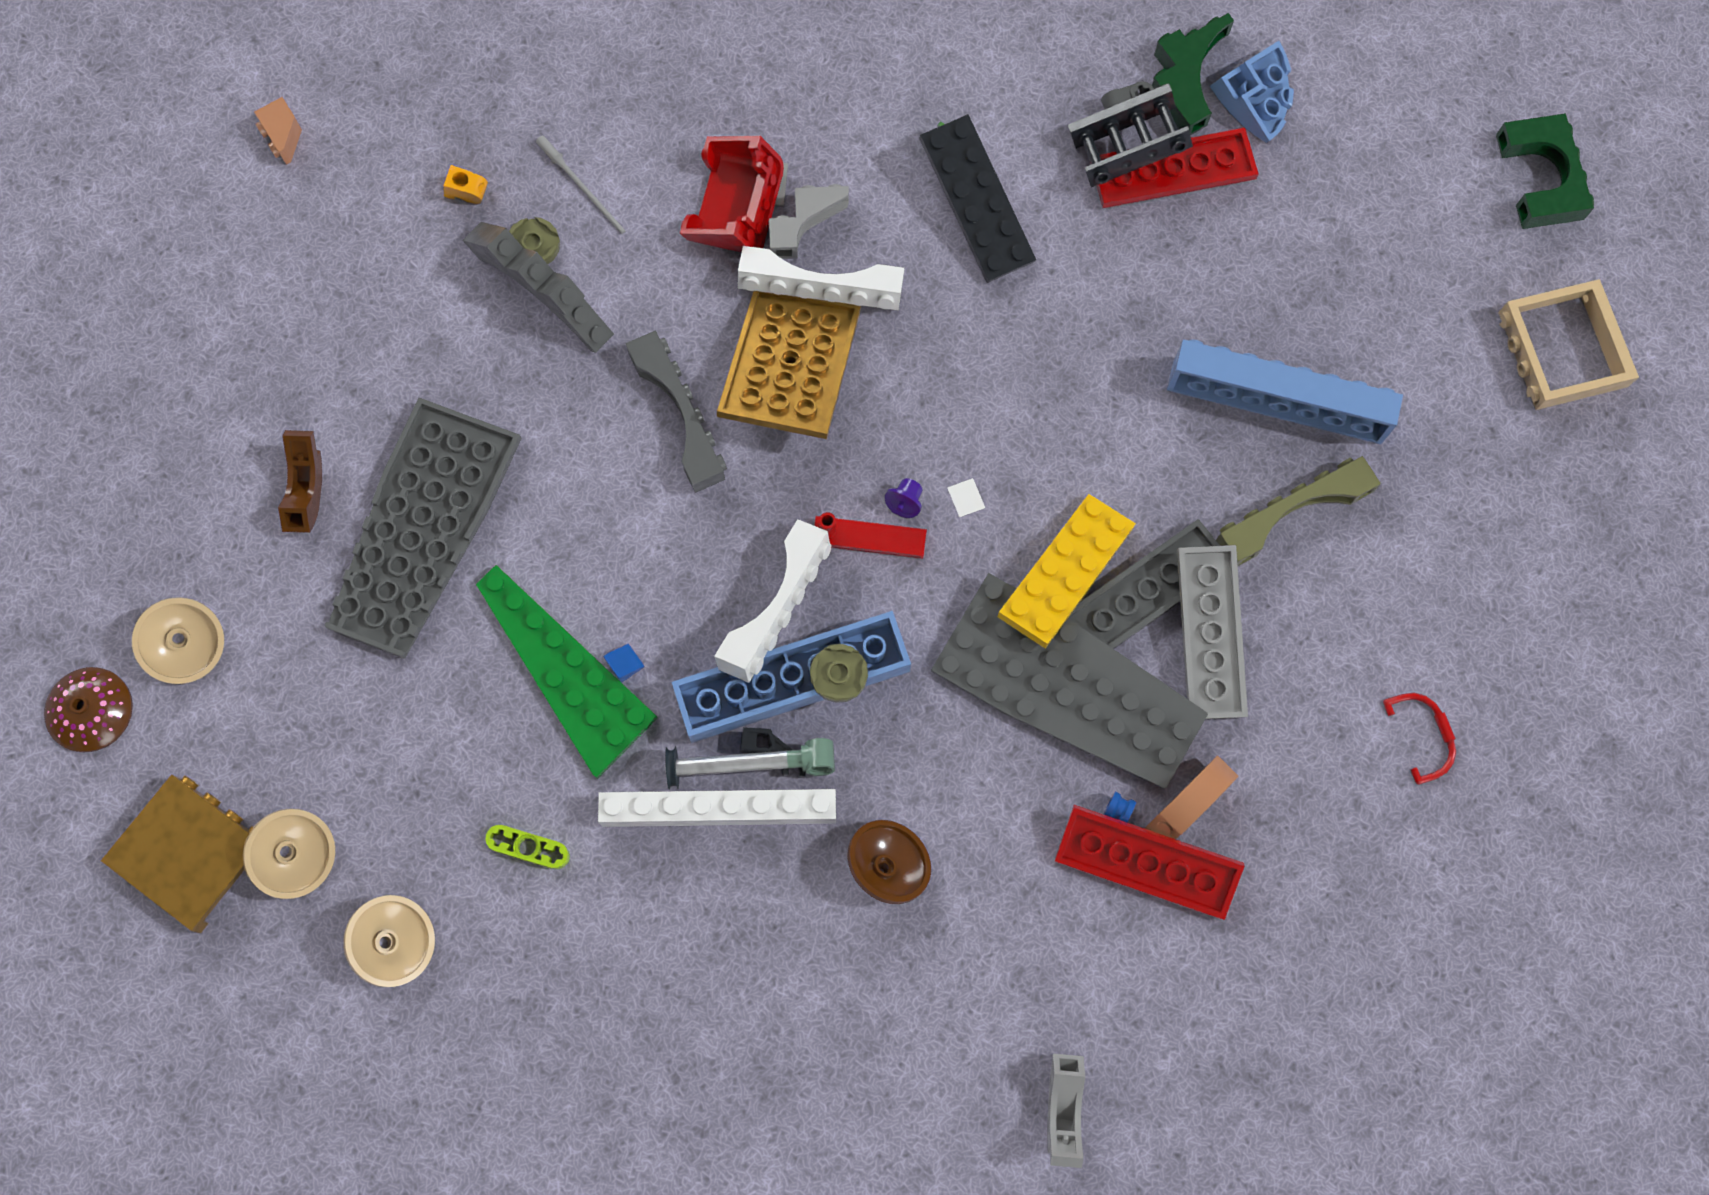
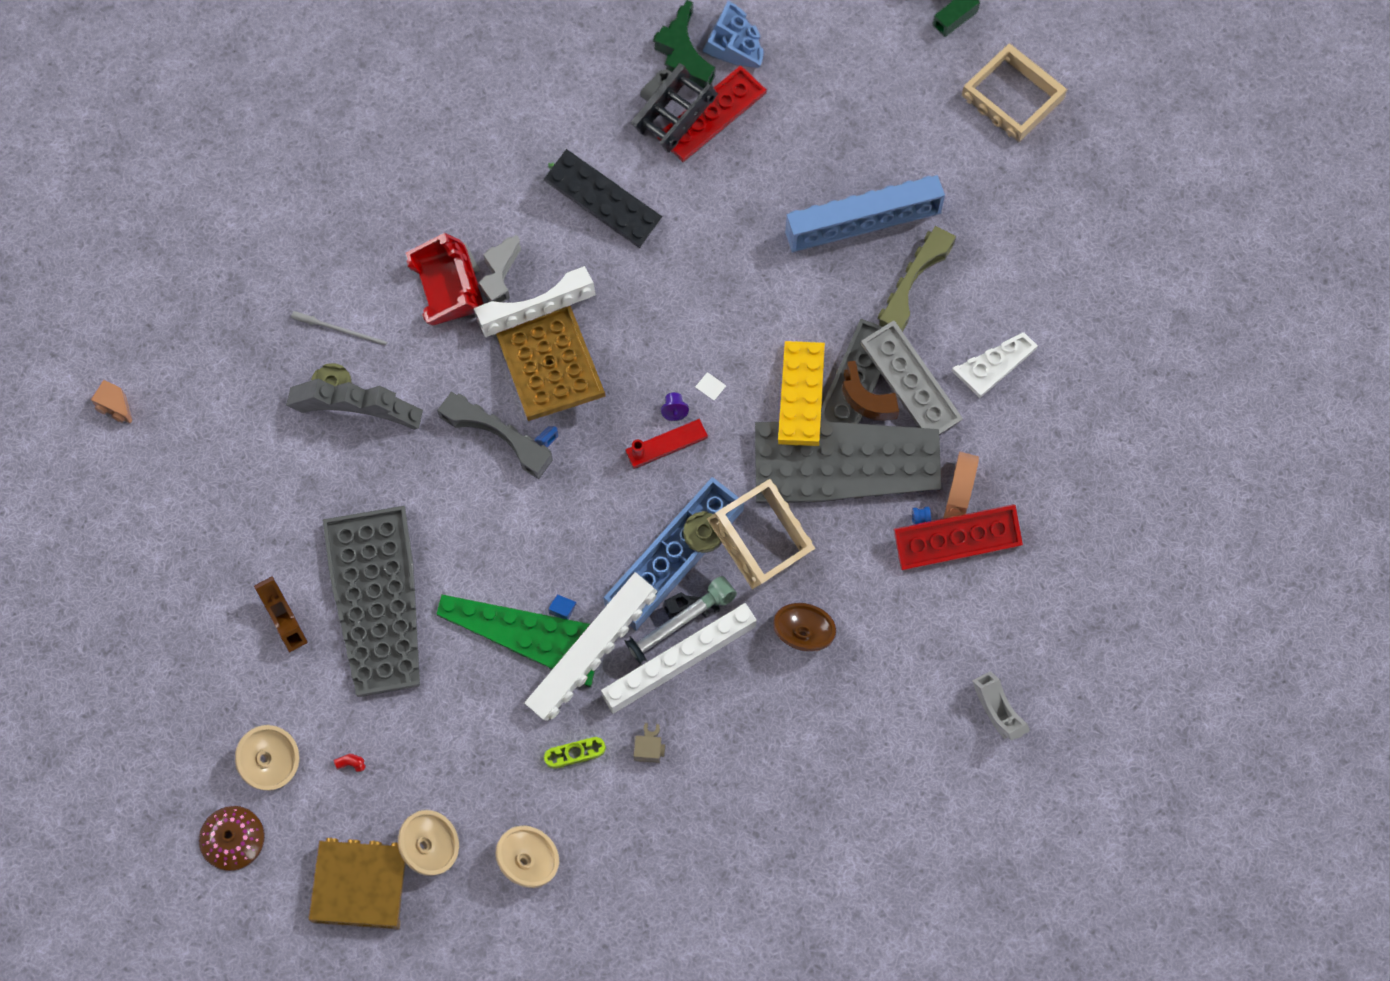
camera: 30 degrees left, 5 degrees down
(273, 701) = (351, 760): none -> red arm
(464, 185) = (263, 370): light orange leg -> none
(614, 895) = (649, 747): none -> dark tan brick
(620, 733) = (591, 646): none -> white brick
(735, 448) = (548, 436): none -> blue slope
(746, 647) = (637, 548): white arch -> none
(863, 716) = (737, 548): none -> tan window
(1137, 629) = (867, 404): none -> reddish brown arch
(1322, 672) = (991, 367): none -> white wing
(1443, 725) = (1078, 358): red piece -> none

